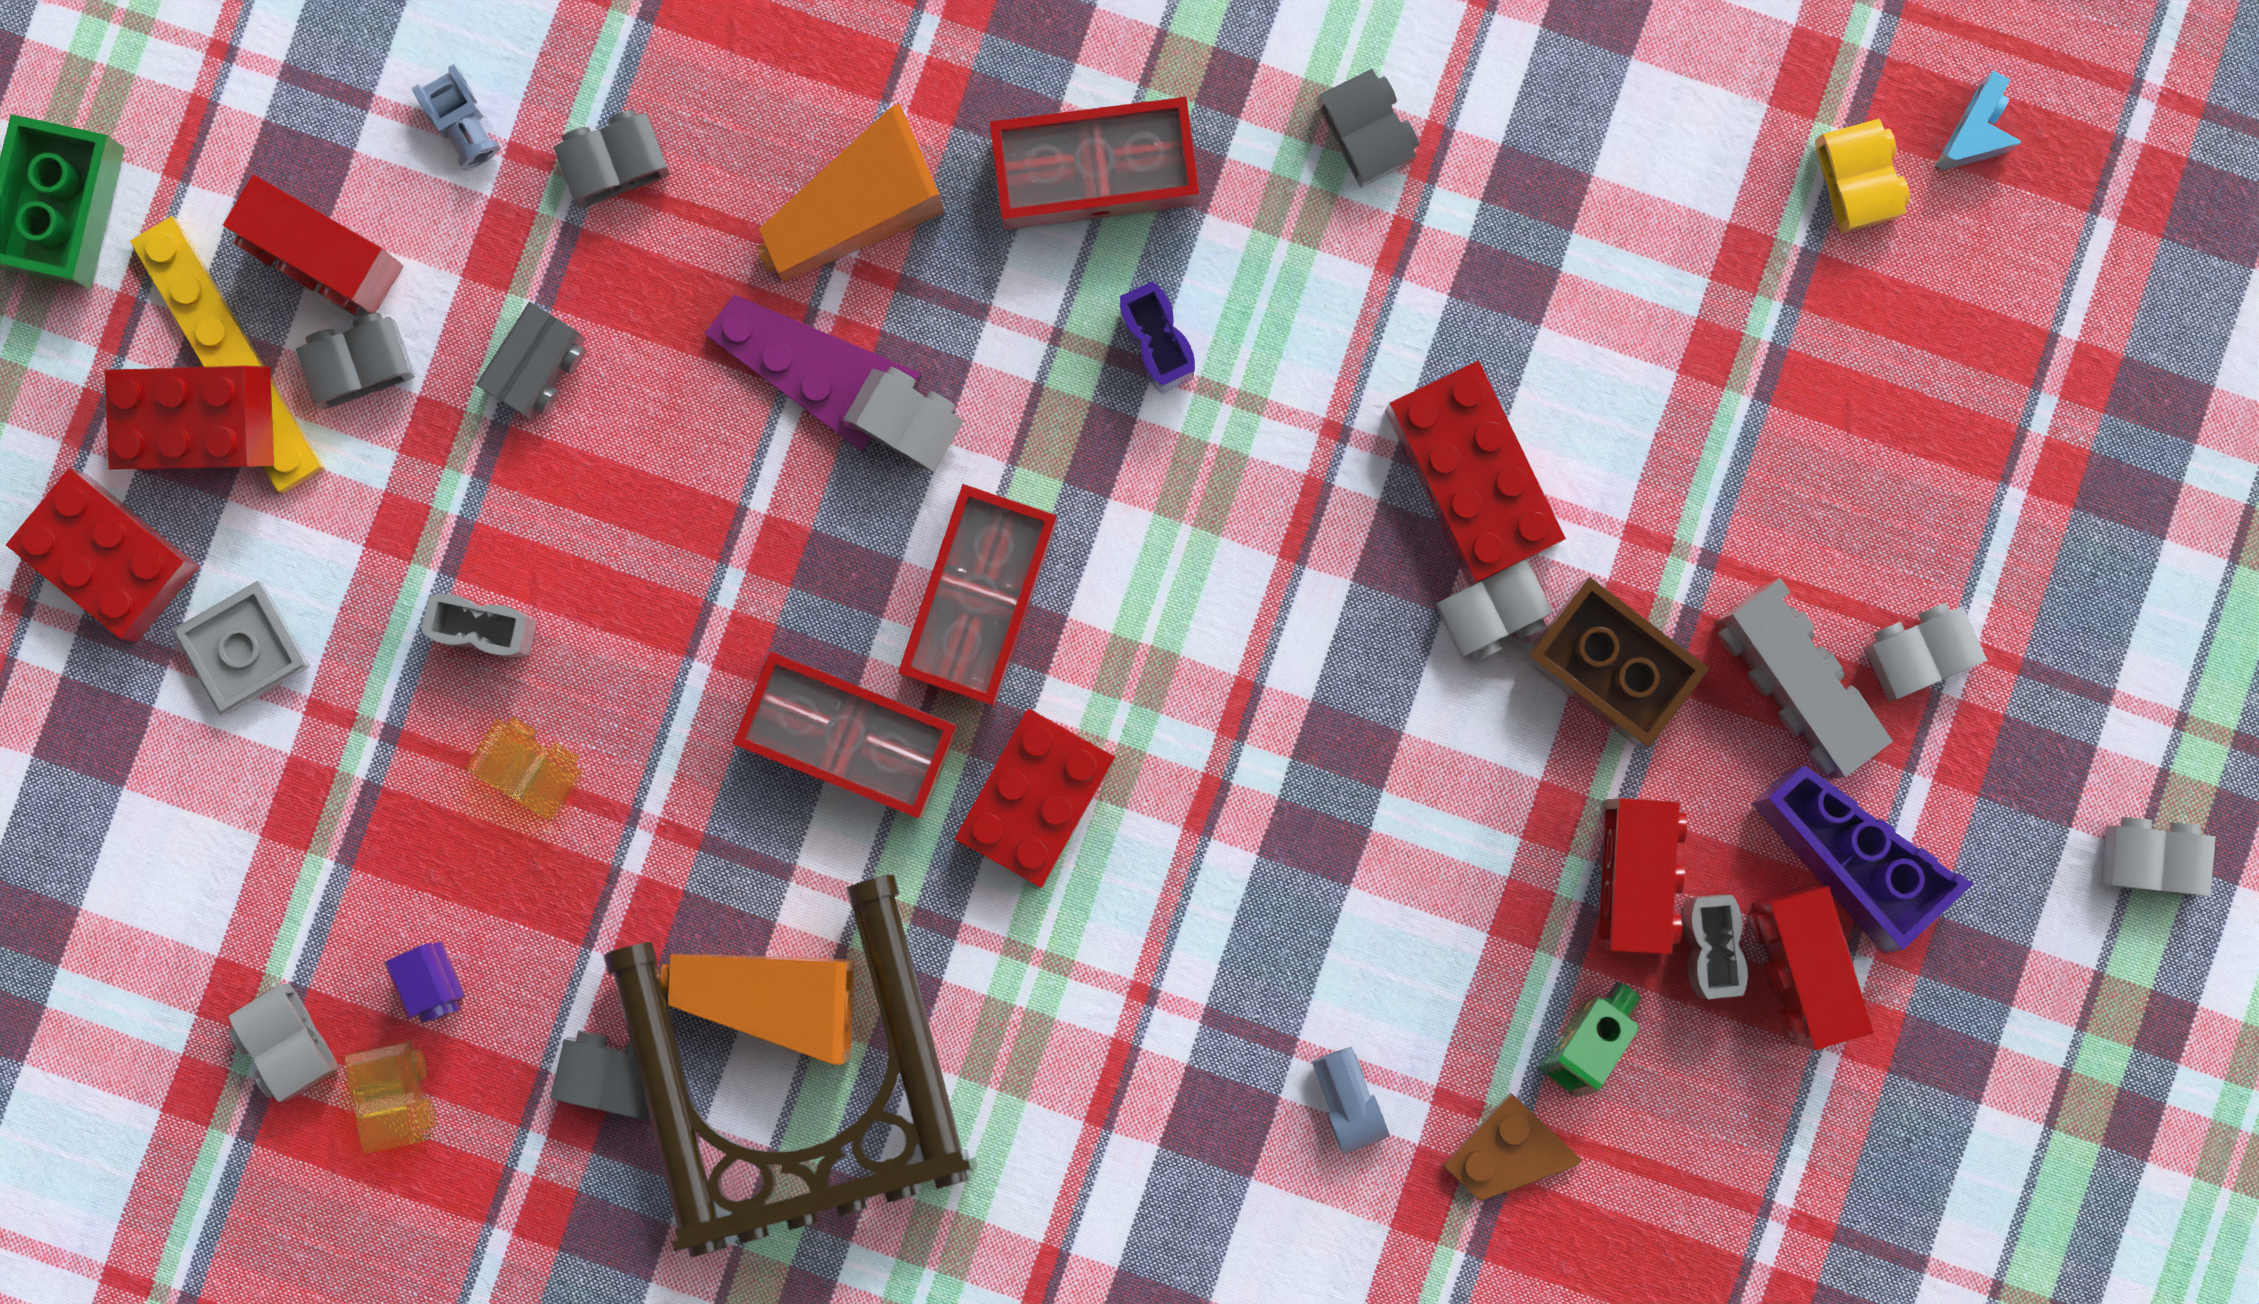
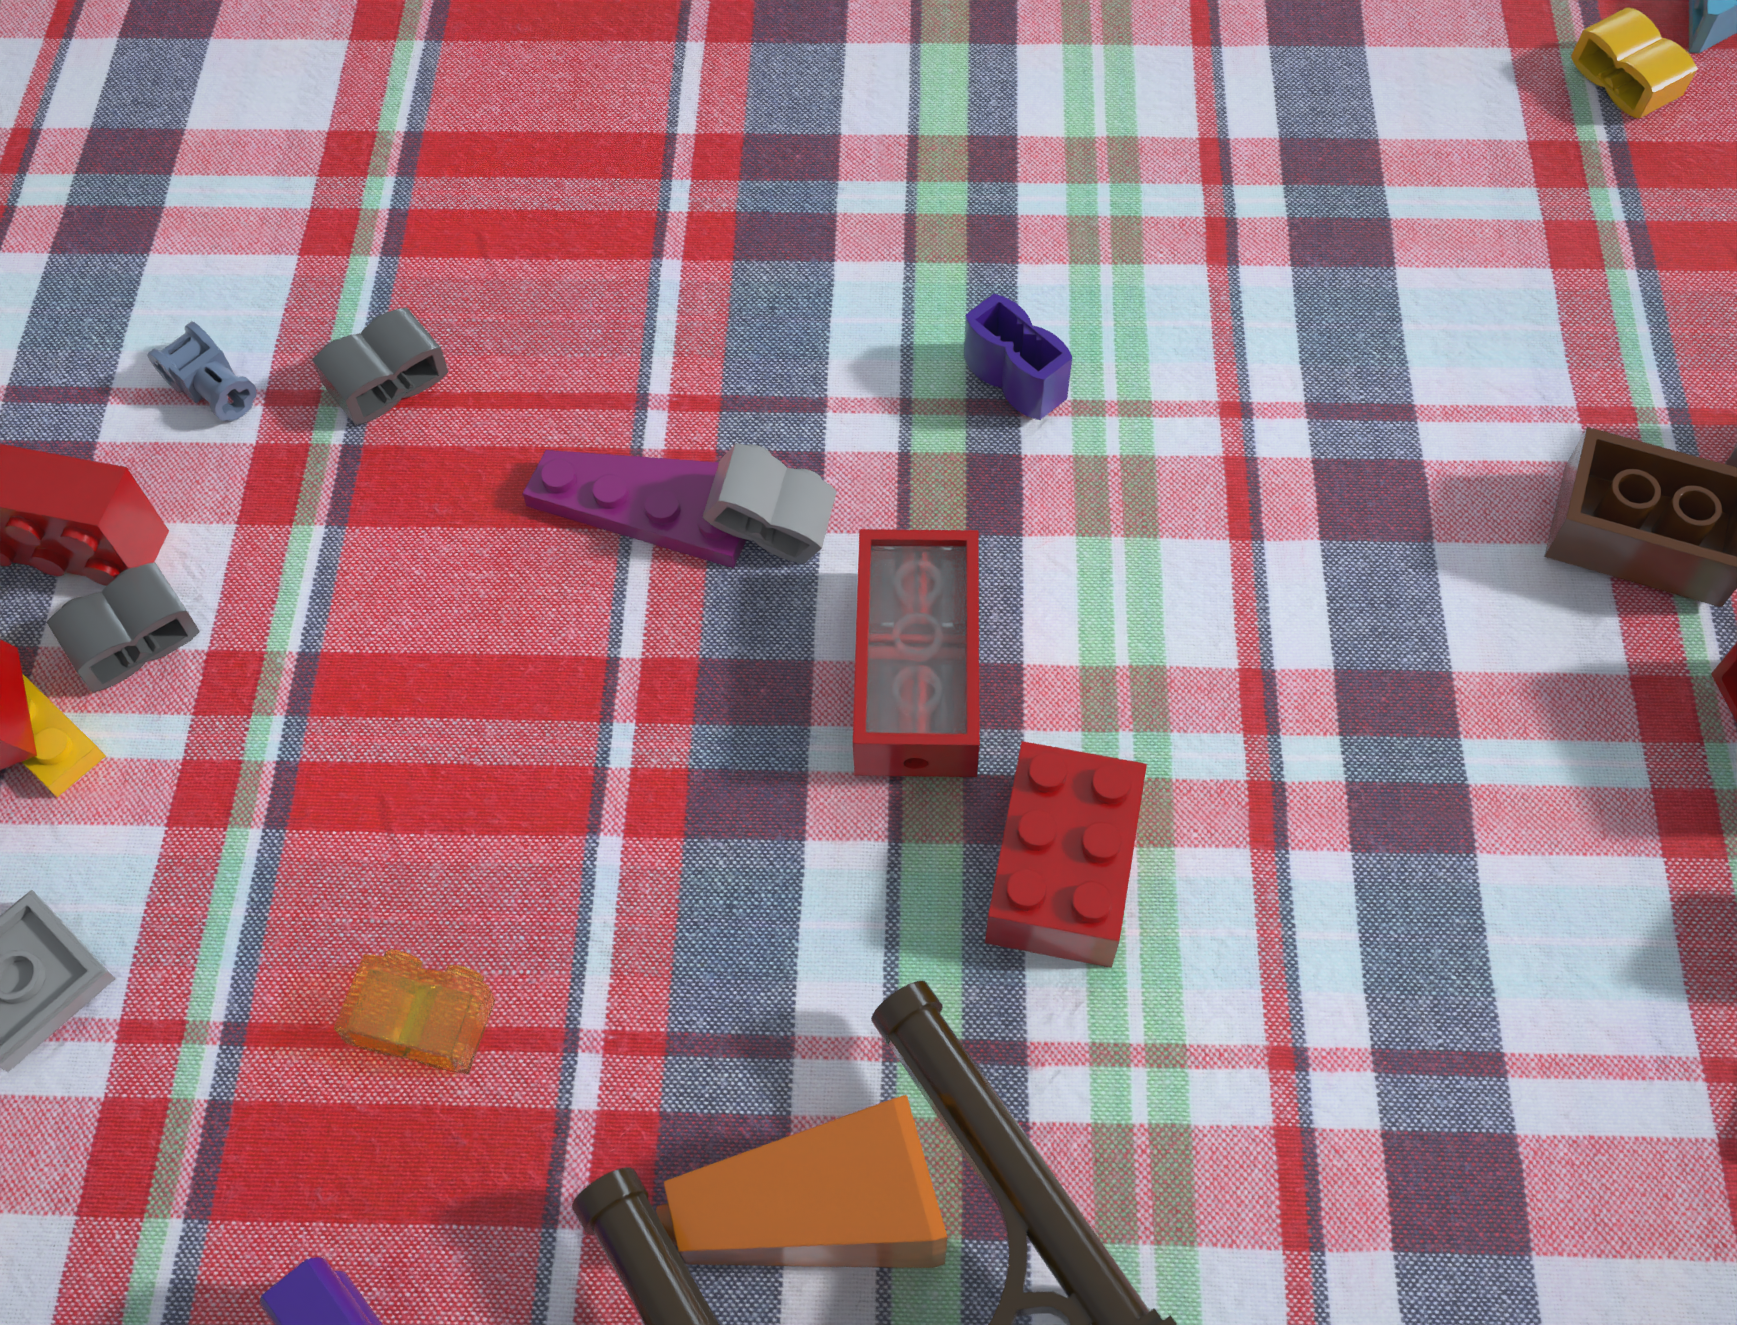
camera: 15 degrees left, 25 degrees down
(470, 625) = (307, 858): light grey brick -> none
(532, 362) = (331, 570): dark grey brick -> none
(846, 735) = (810, 845): clear brick -> none
(855, 201) = (657, 322): orange slope -> none
(1095, 163) = (891, 230): clear brick -> none
(1353, 1111) = (1627, 1119): sand blue piece -> none
(1367, 127) = (1147, 145): dark grey brick -> none
(1474, 473) = (1406, 392): red brick -> none
(1495, 609) = (1492, 510): light grey brick -> none

